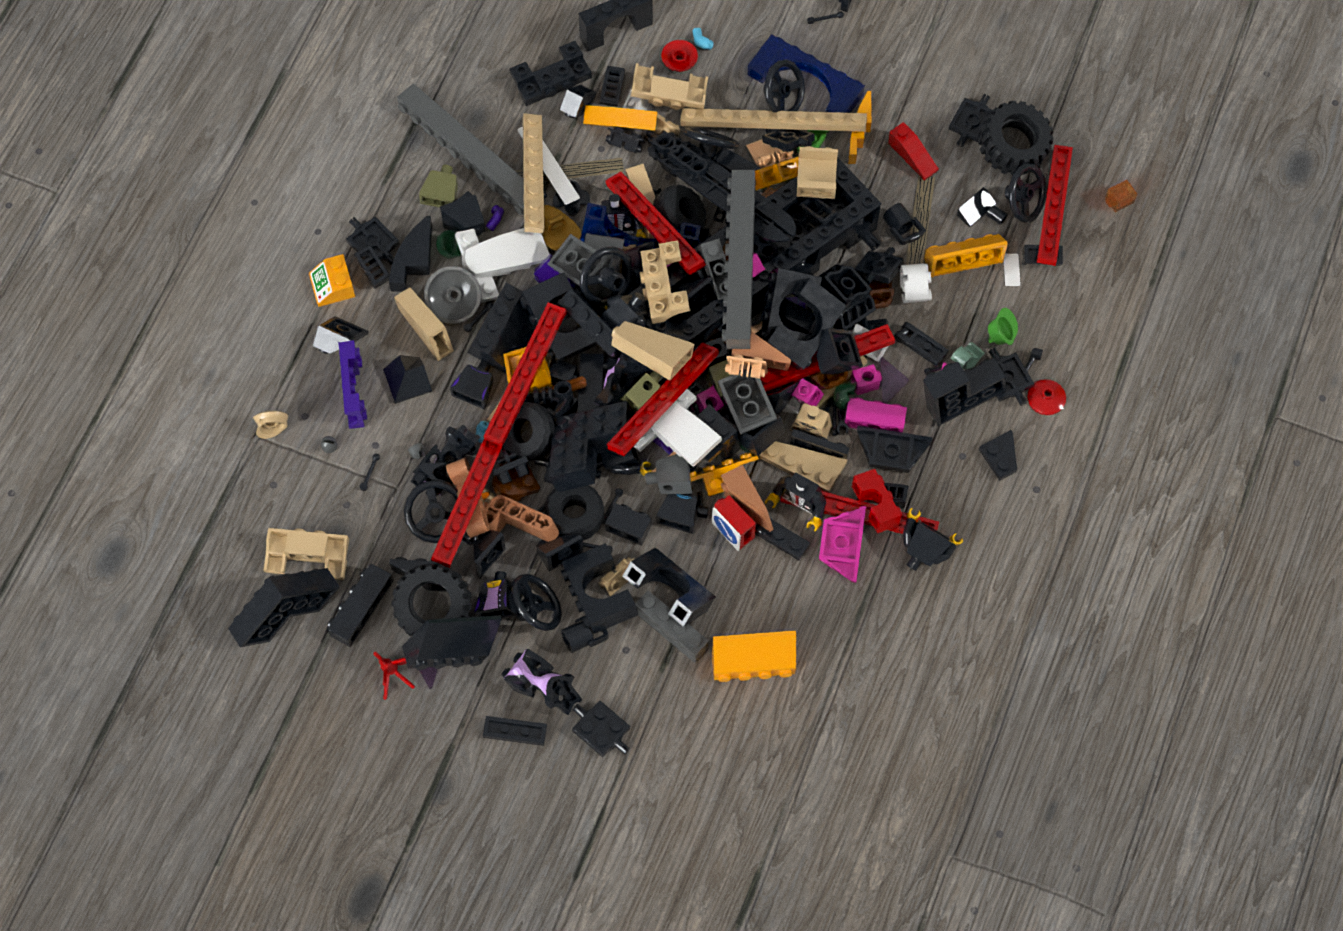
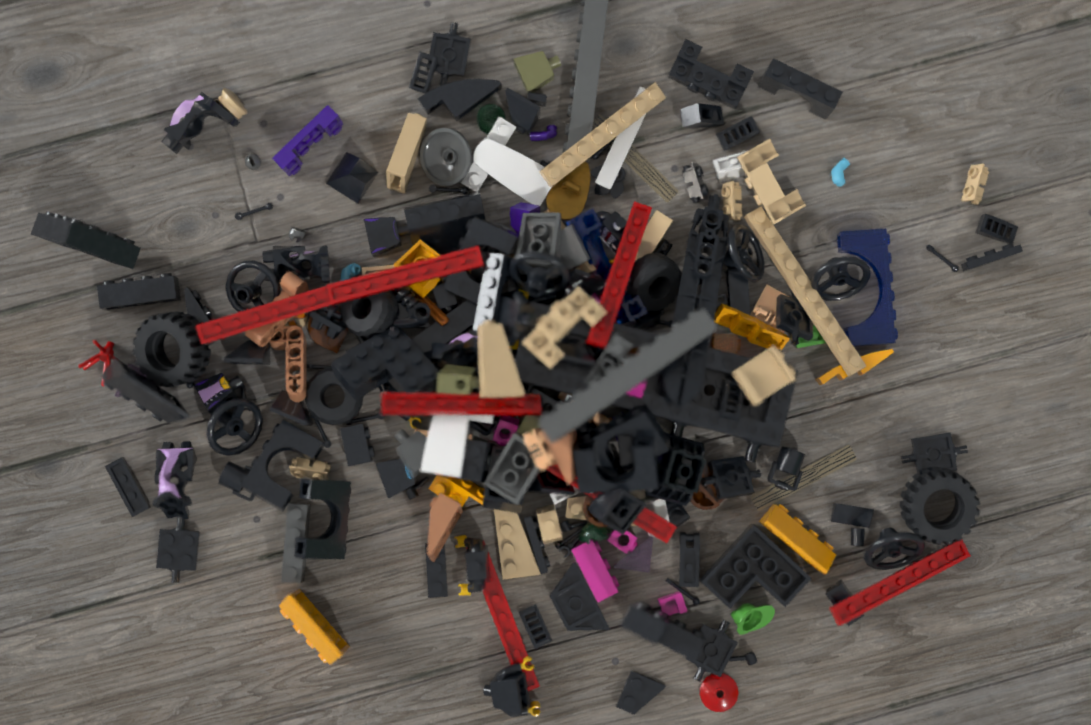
camera: 50 degrees right, 20 degrees up
(253, 463) = (189, 121): none -> black hips
(306, 546) = (150, 209): tan bracket -> none
(331, 281) = (389, 52): light orange slope -> none
(336, 331) = (346, 95): black slope -> none
(620, 117) = (710, 164): light orange slope -> none
(679, 49) = (815, 160): red dish -> none
(733, 522) = (414, 527): red piece -> none
(807, 393) = (568, 505): dark pink brick -> none
(842, 542) = (466, 622): dark pink wing -> none
(871, 487) = (511, 643): red arch -> none
(911, 149) = (864, 426): red slope -> none
(914, 282) = (737, 518): white brick -> none
(959, 295) = (750, 560): none -> black brick
(968, 355) = (703, 607): sand green leg -> none
(1011, 270) = (817, 583): white sticker -> none
(1120, 196) = (953, 627): clear orange brick -> none

